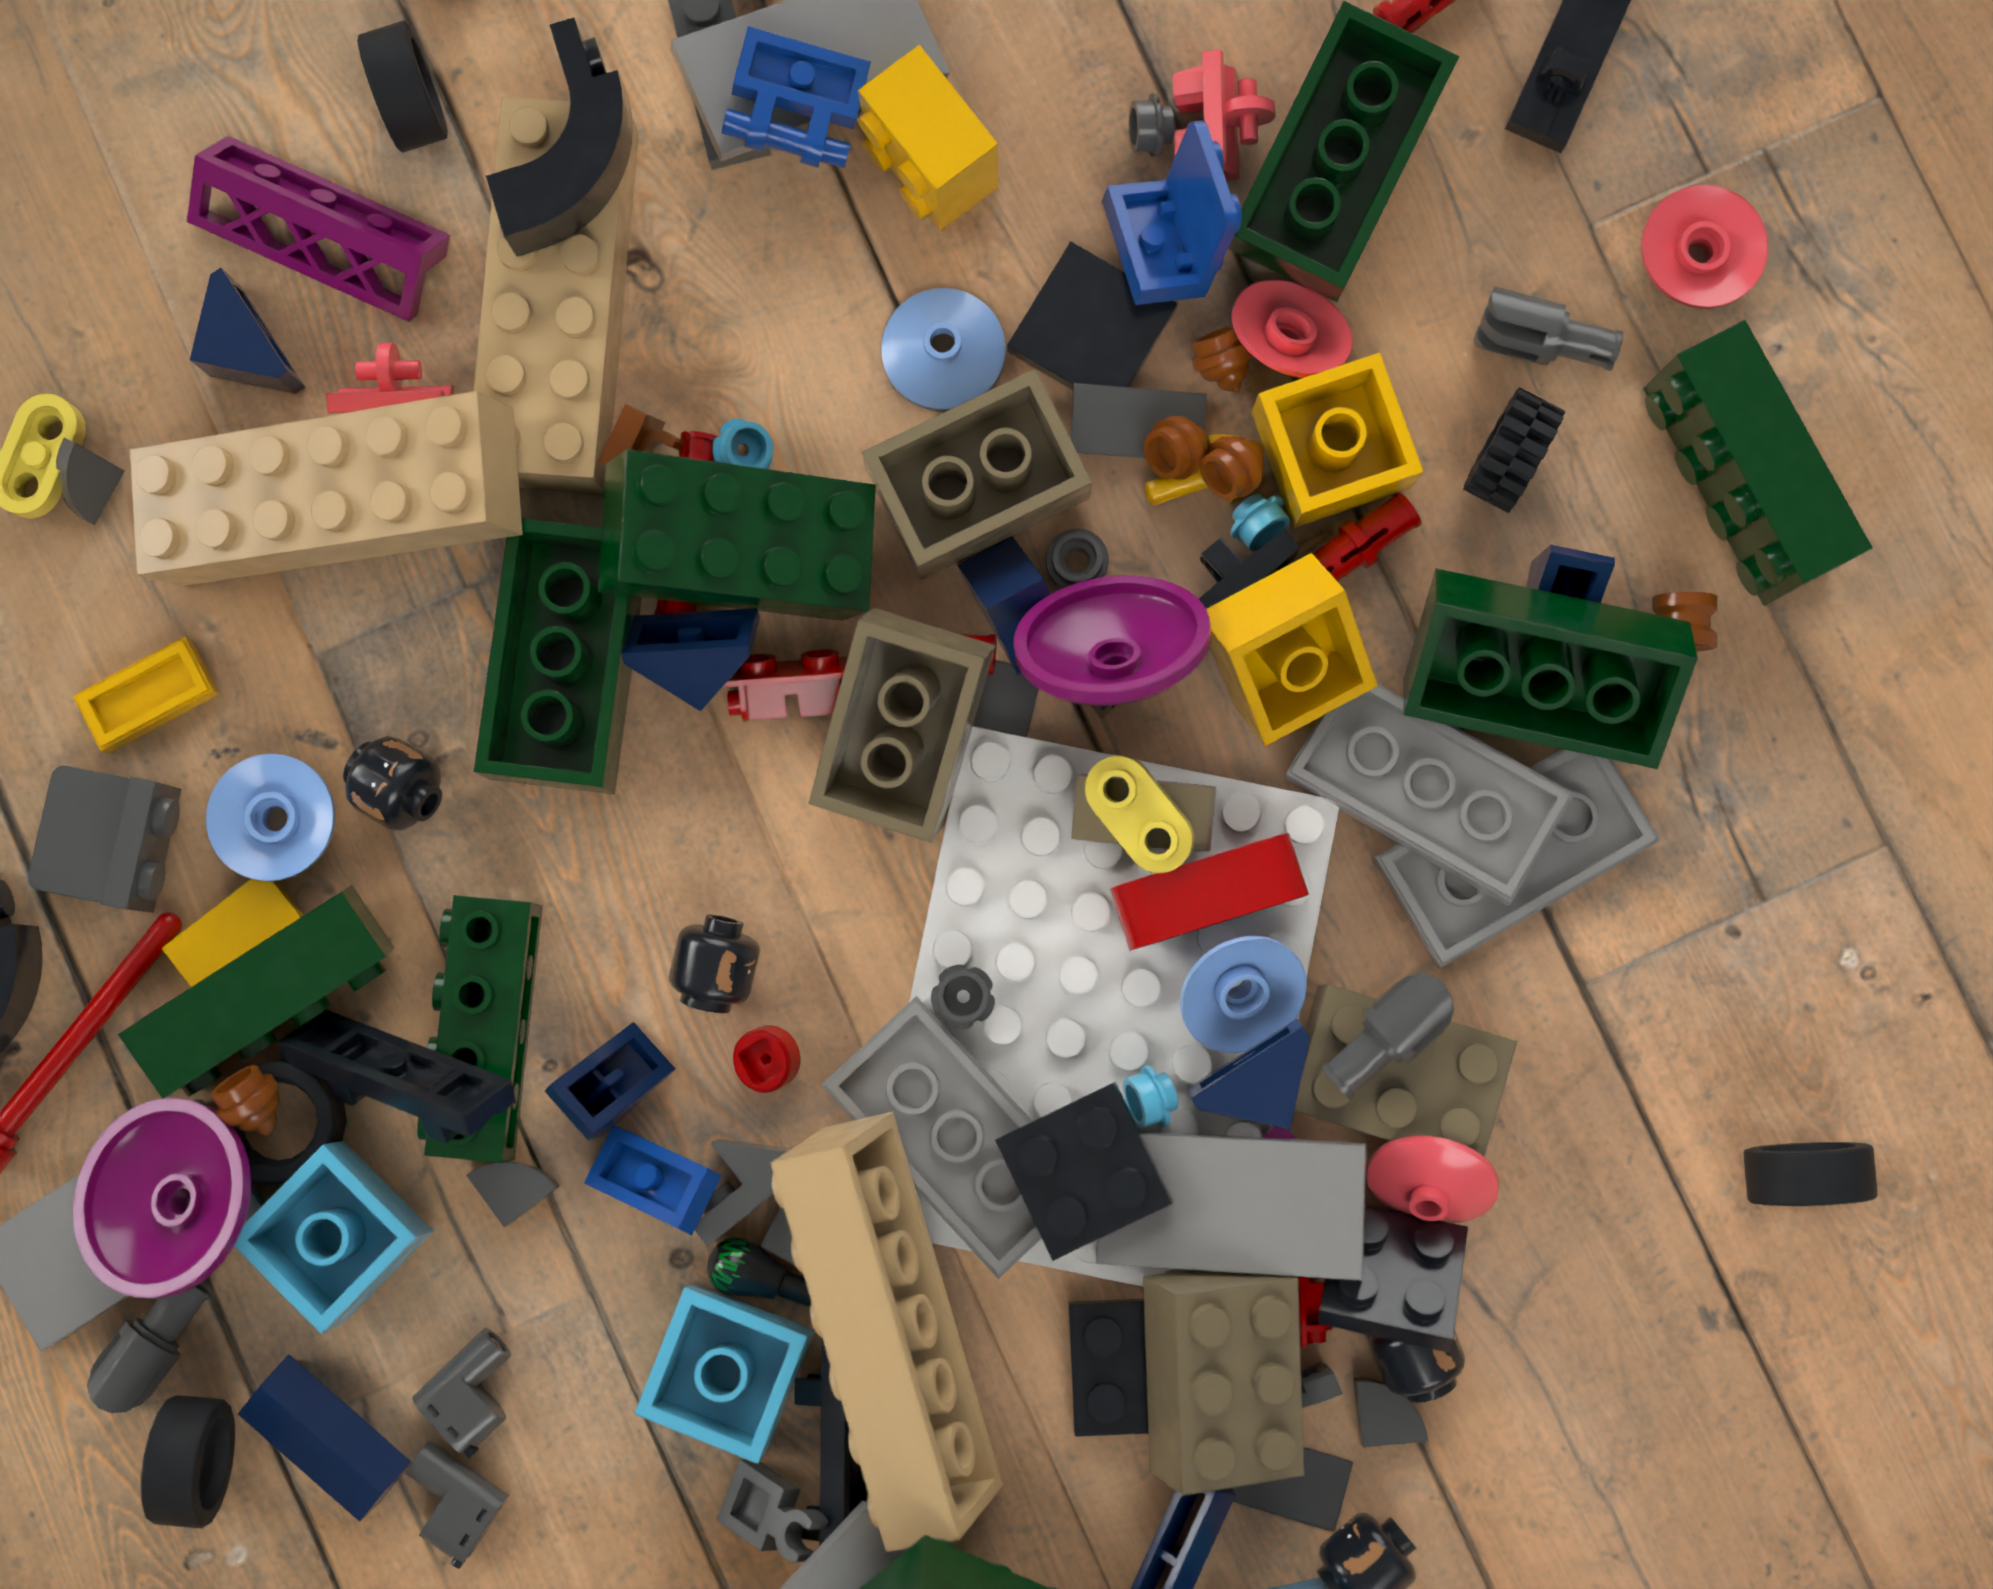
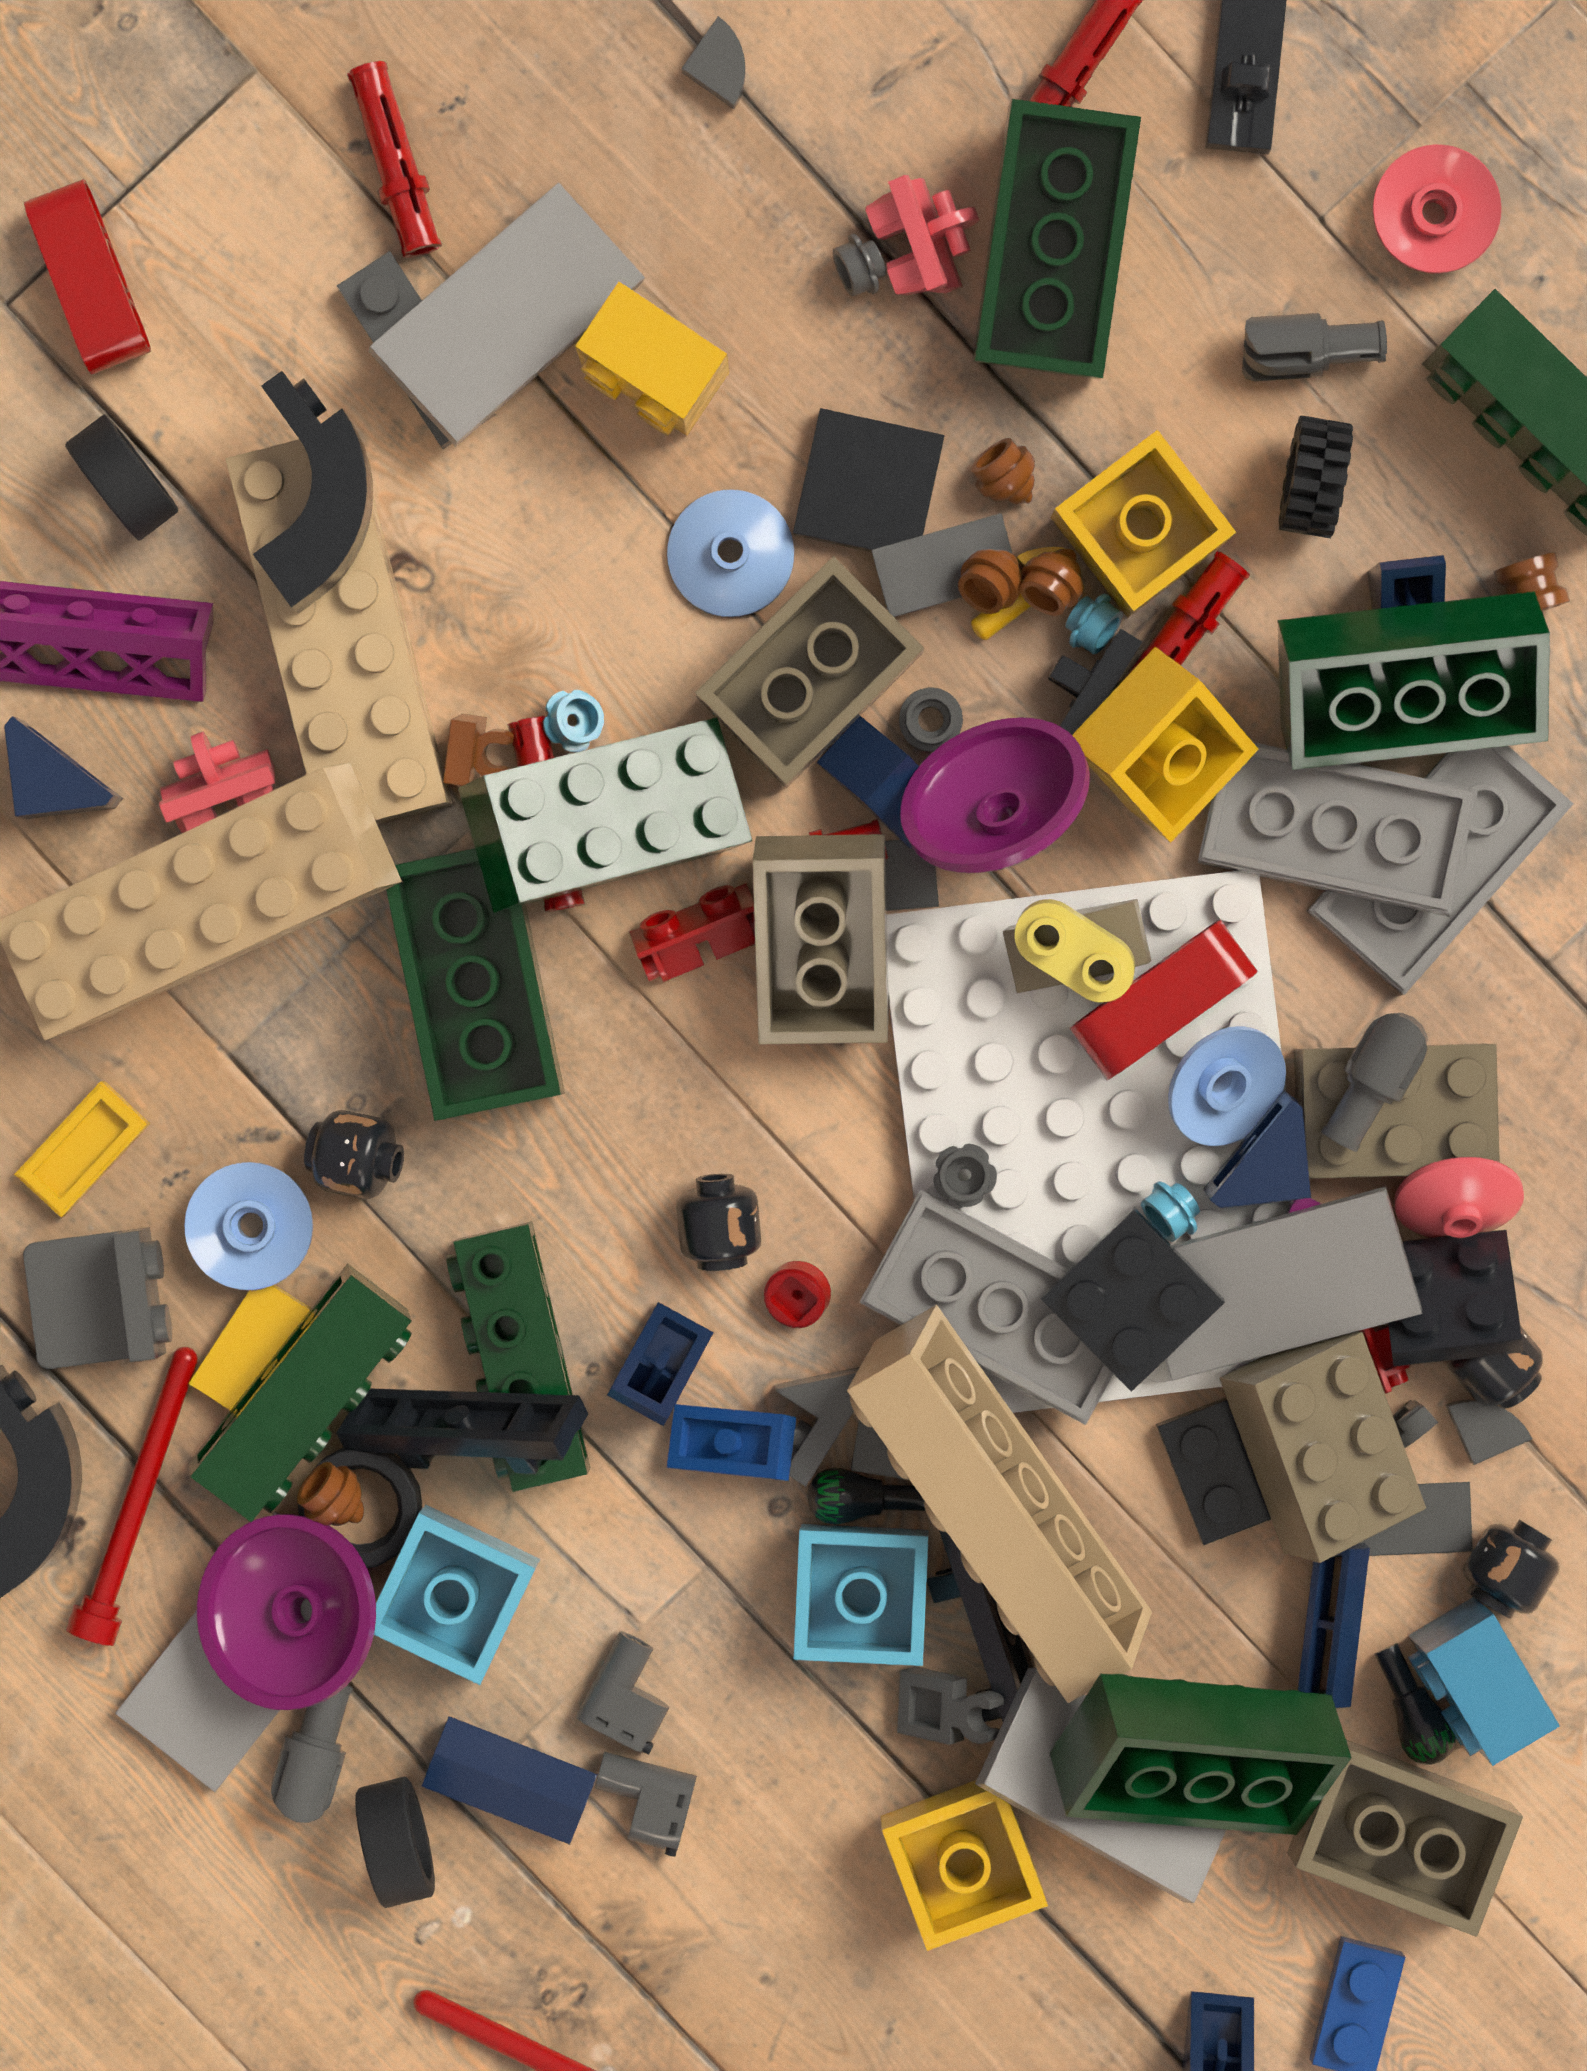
camera: 20 degrees left, 5 degrees up
(511, 1188) = (599, 1495): dark grey tile -> none
(691, 650) = (597, 934): dark blue slope -> none
(799, 80) = (511, 345): blue plate -> none
(1175, 228) = (917, 364): blue bracket -> none
(1291, 328) = (1064, 425): coral dish -> none

